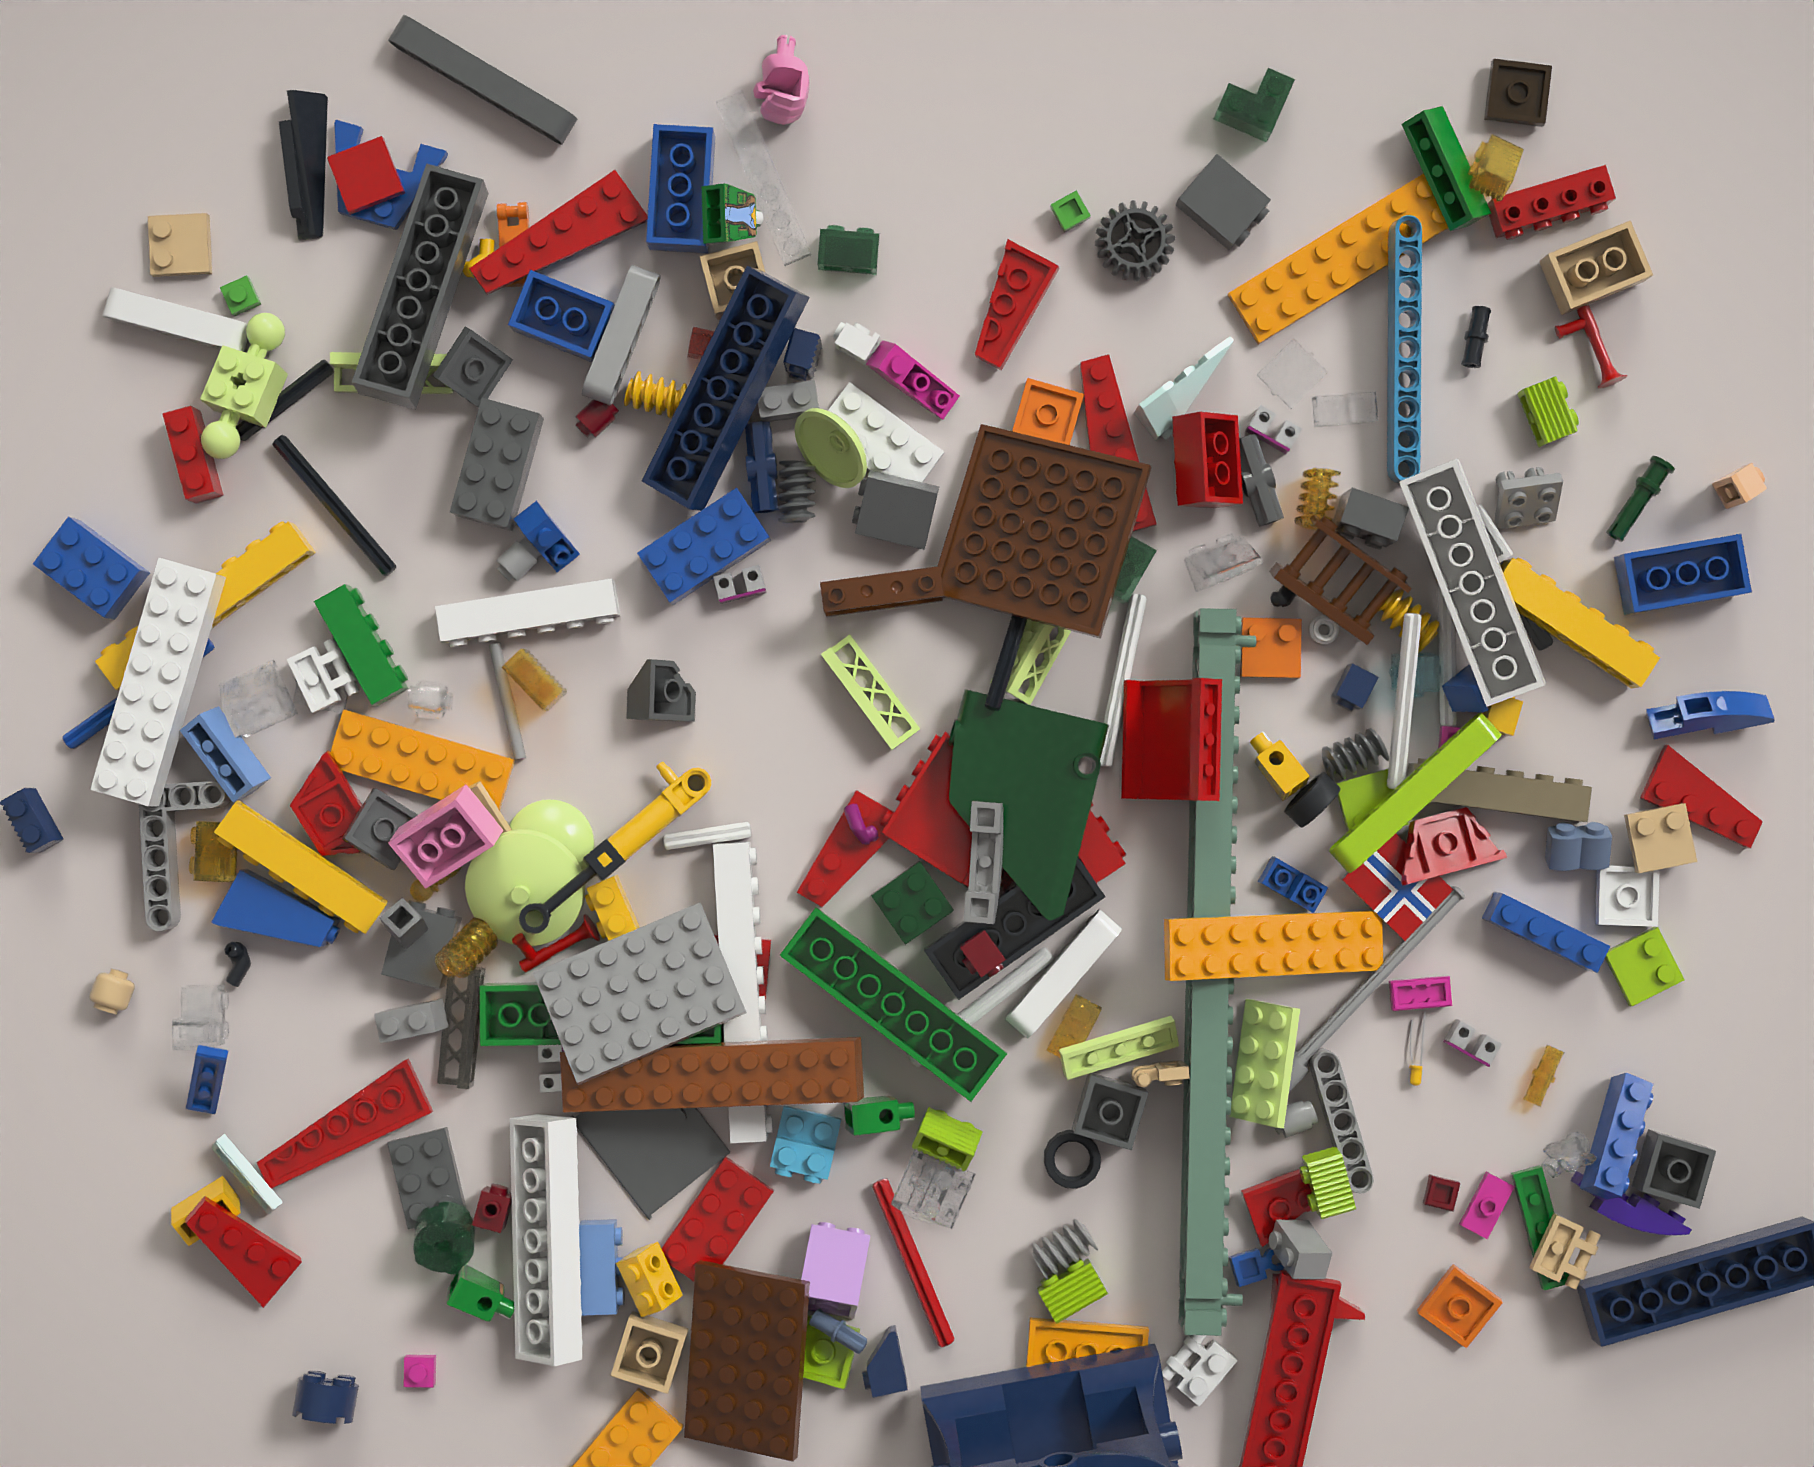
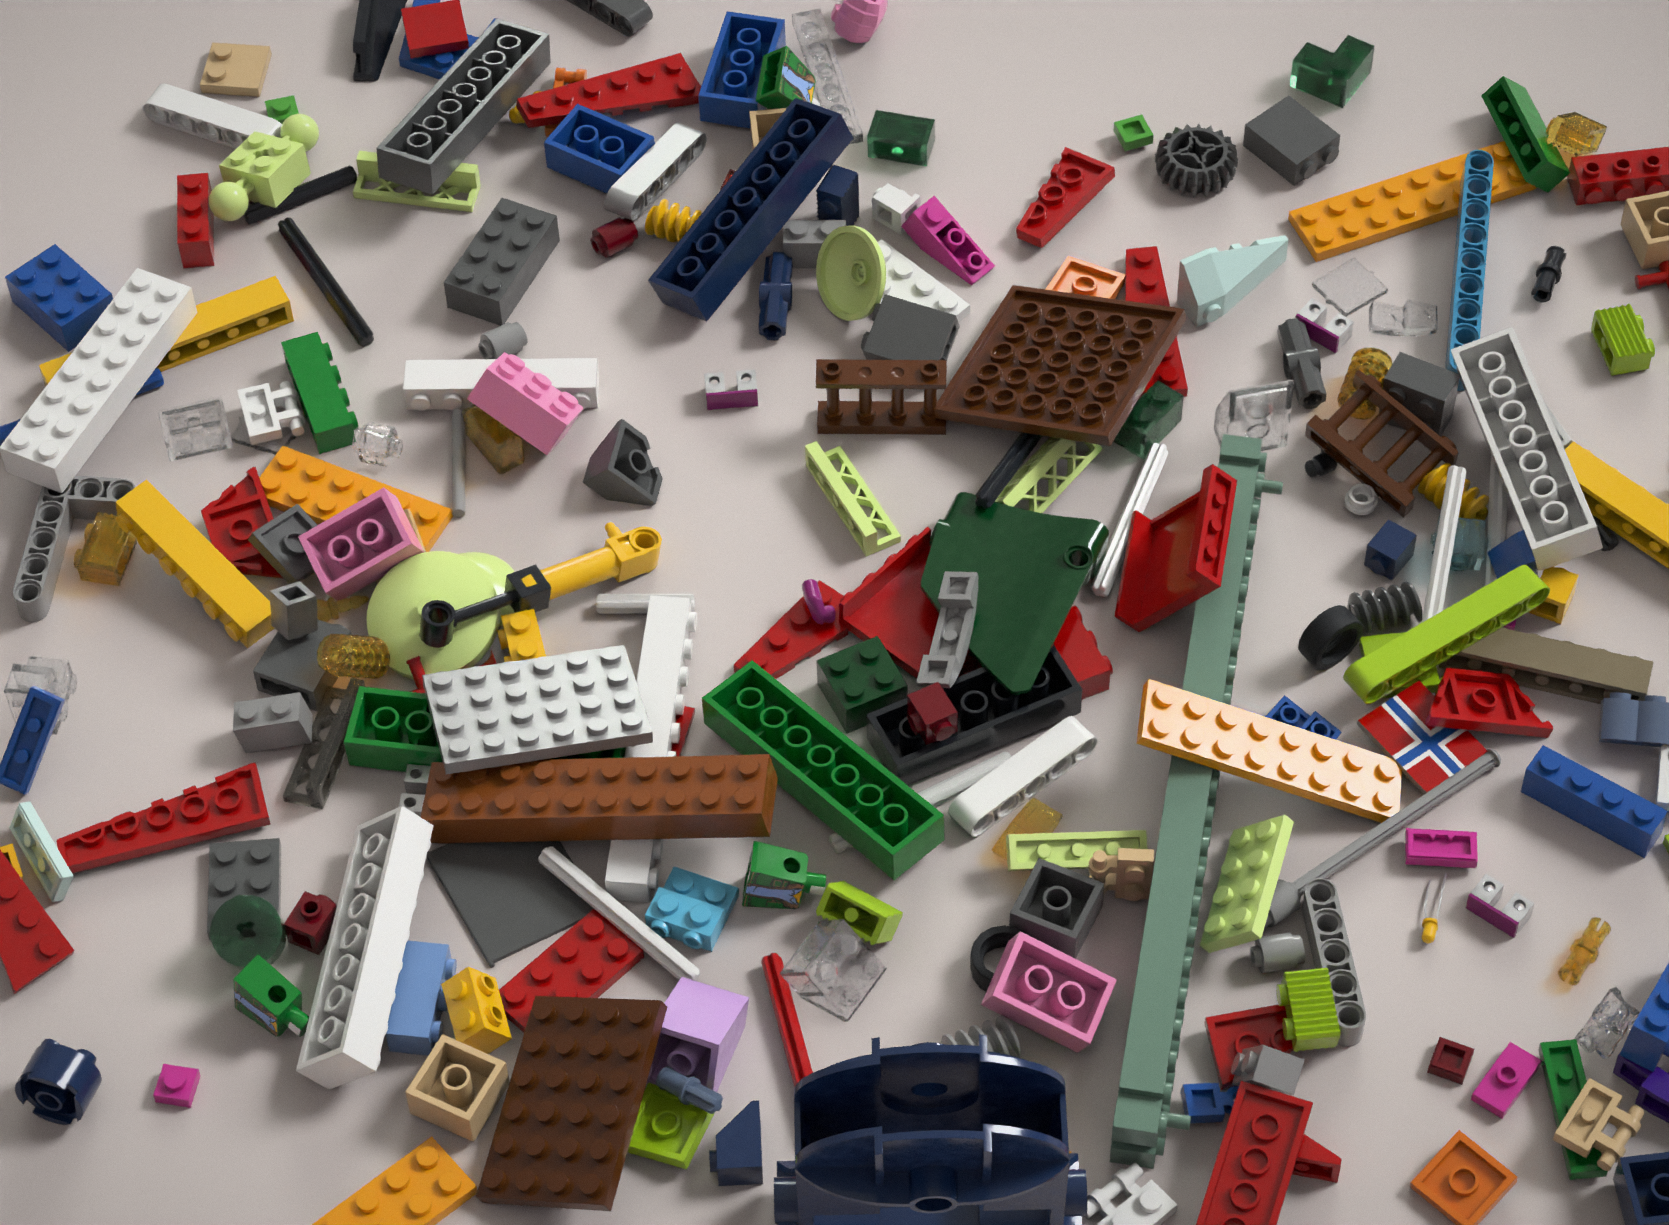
camera: 15 degrees right, 35 degrees down
(224, 755) = (146, 456): medium blue brick -> none
(241, 962) = (100, 655): black arm -> none
(272, 911) = (151, 610): blue slope -> none
(472, 367) = (498, 175): dark grey plate -> none
(546, 536) = (540, 325): blue slope -> none
(558, 654) = (525, 402): none -> bright pink brick
(704, 546) = (714, 340): blue brick -> none
(746, 1165) = (618, 914): none -> white axle
(797, 491) = (807, 316): dark grey piece -> none
(1115, 1201) = (1049, 992): none -> bright pink brick
(1207, 460) = (1248, 329): red brick -> none
(1276, 648) = (1301, 512): orange plate -> none
(1283, 778) = (1295, 603): yellow torso -> none
(1518, 92) = (1605, 91): dark brown plate -> none
(1527, 499) = (1595, 403): light grey plate -> none

